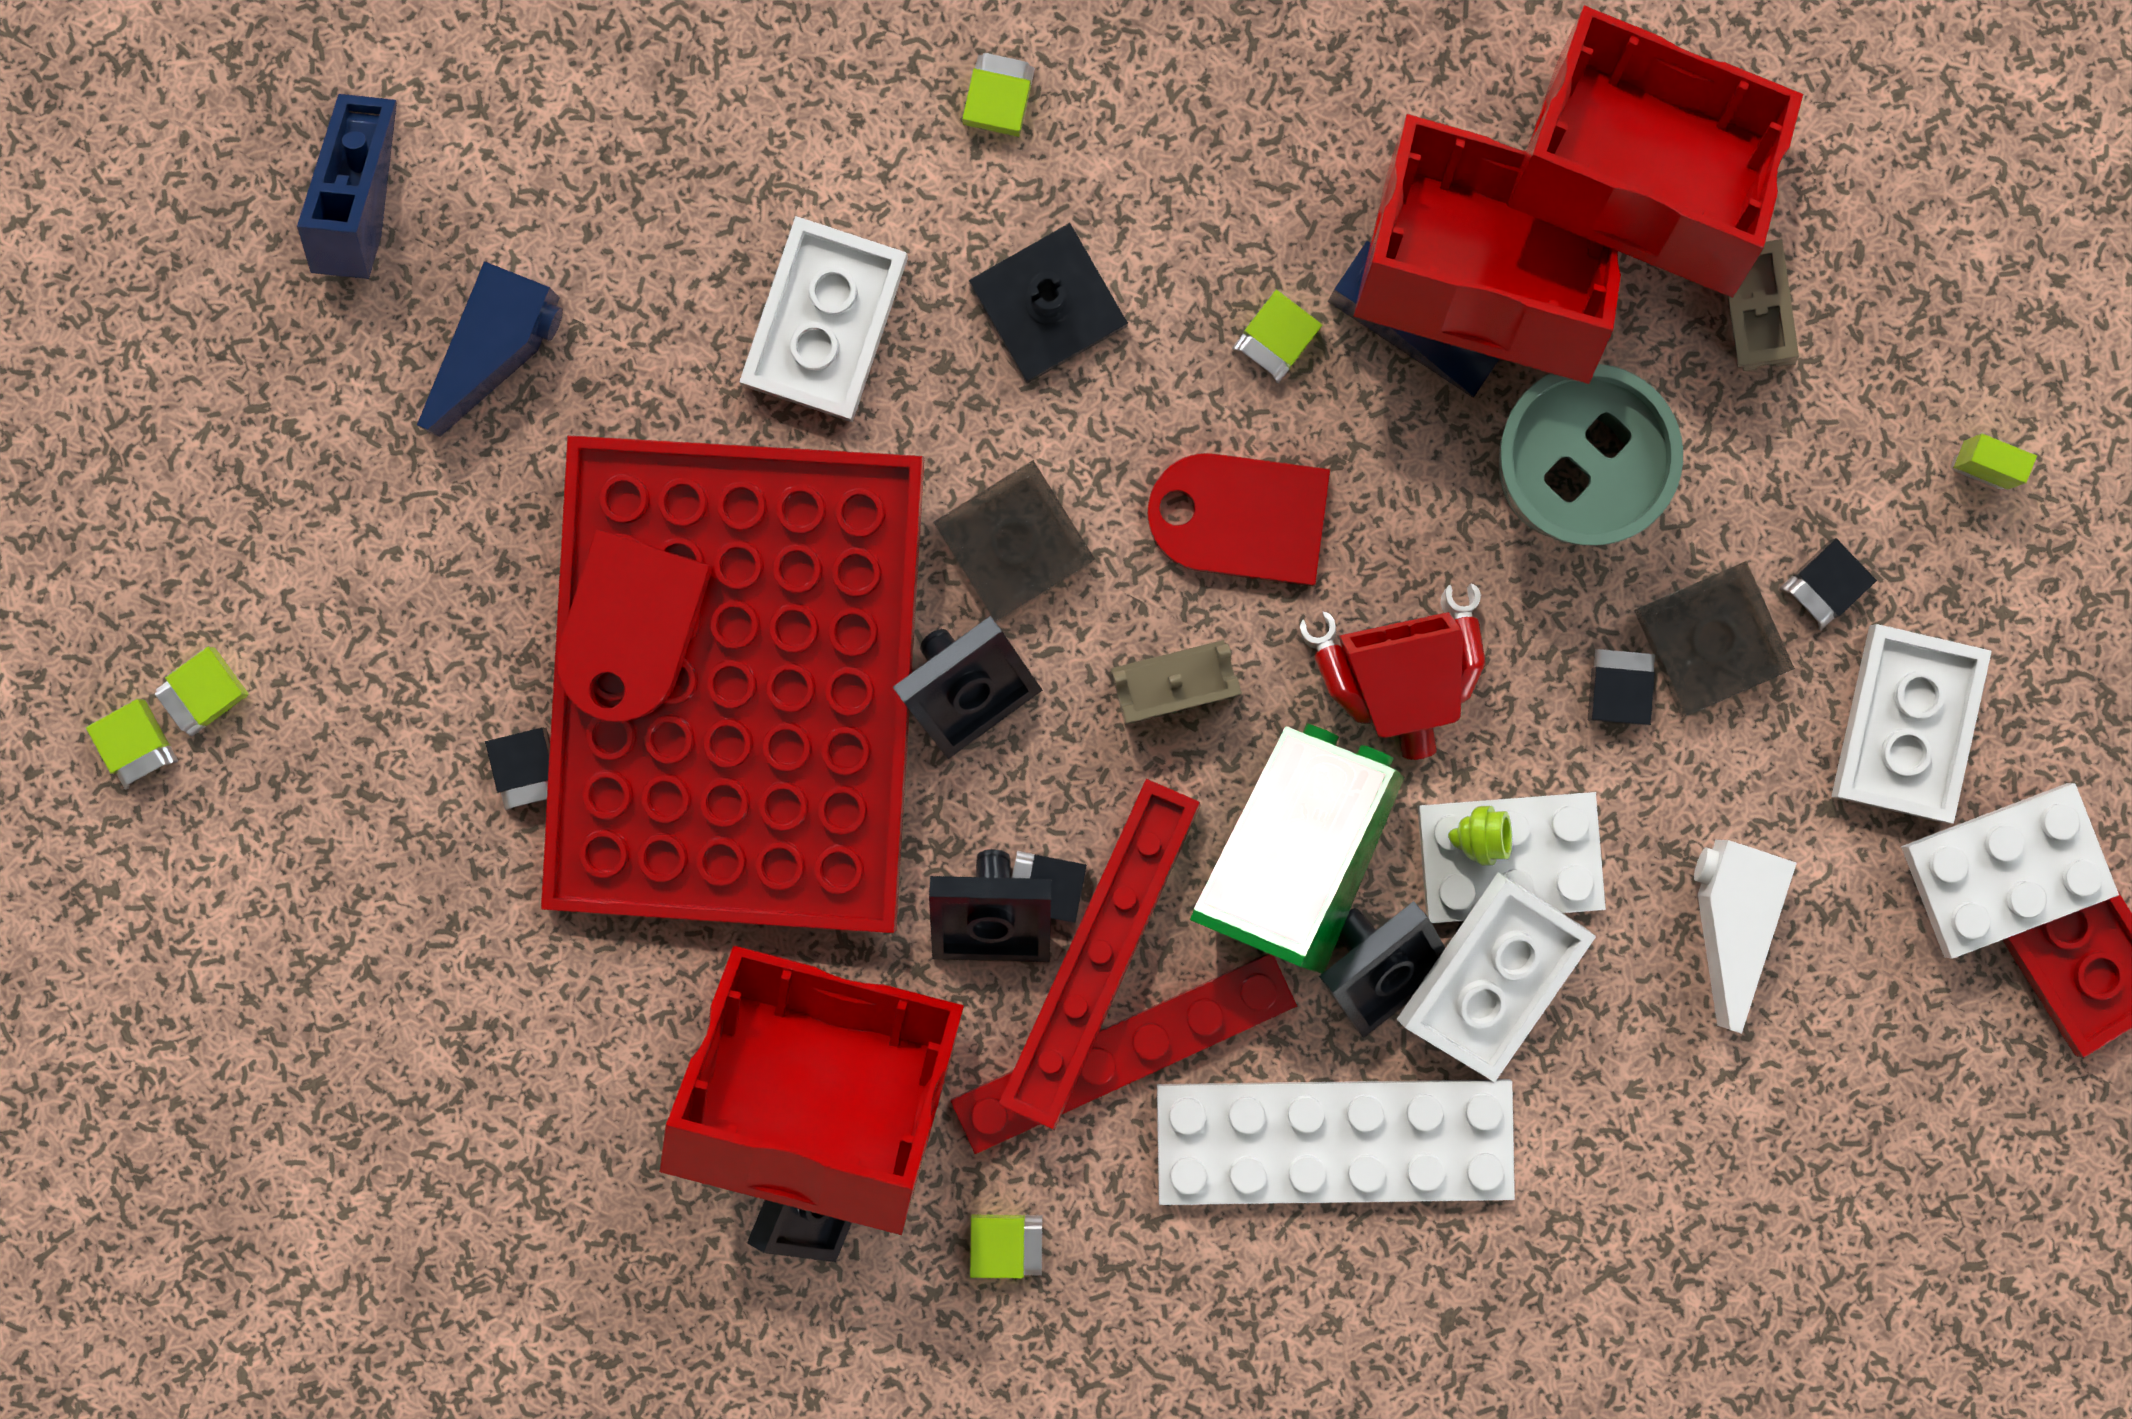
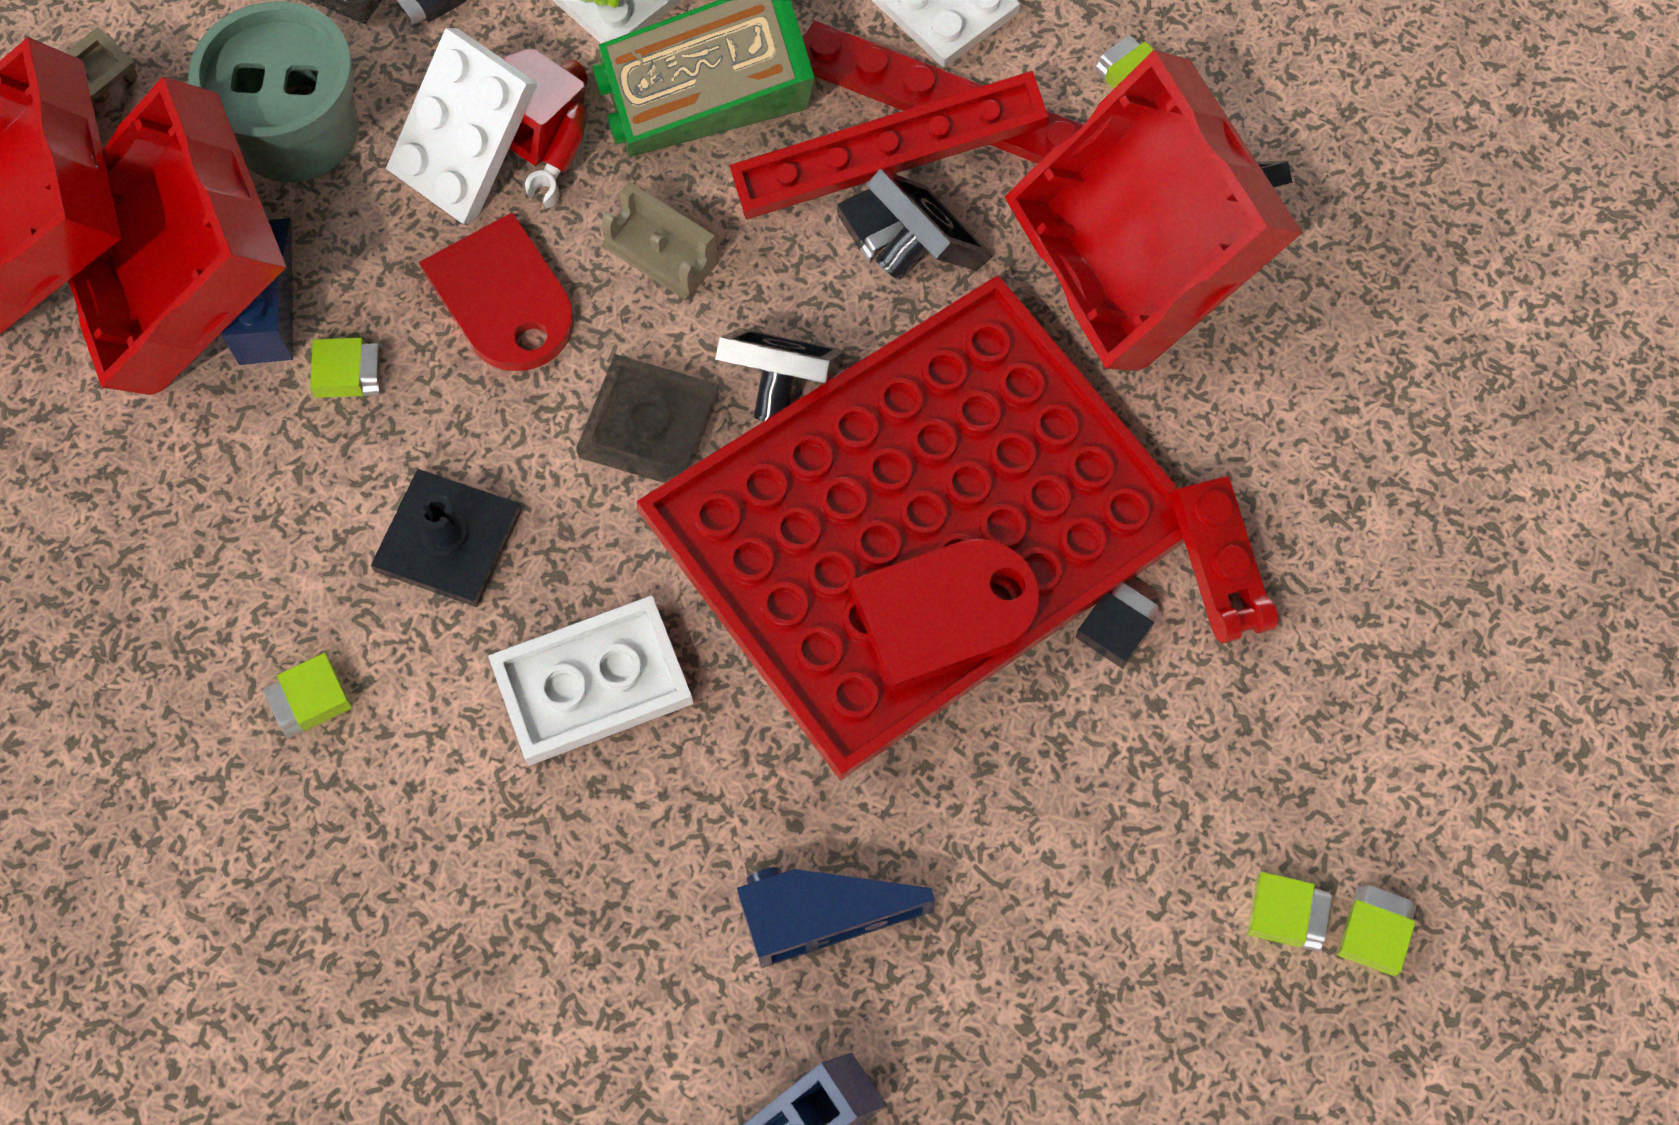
camera: 130 degrees left, 20 degrees down
(500, 893) = (1223, 559): none -> red plate
(1420, 594) = (461, 125): none -> white plate

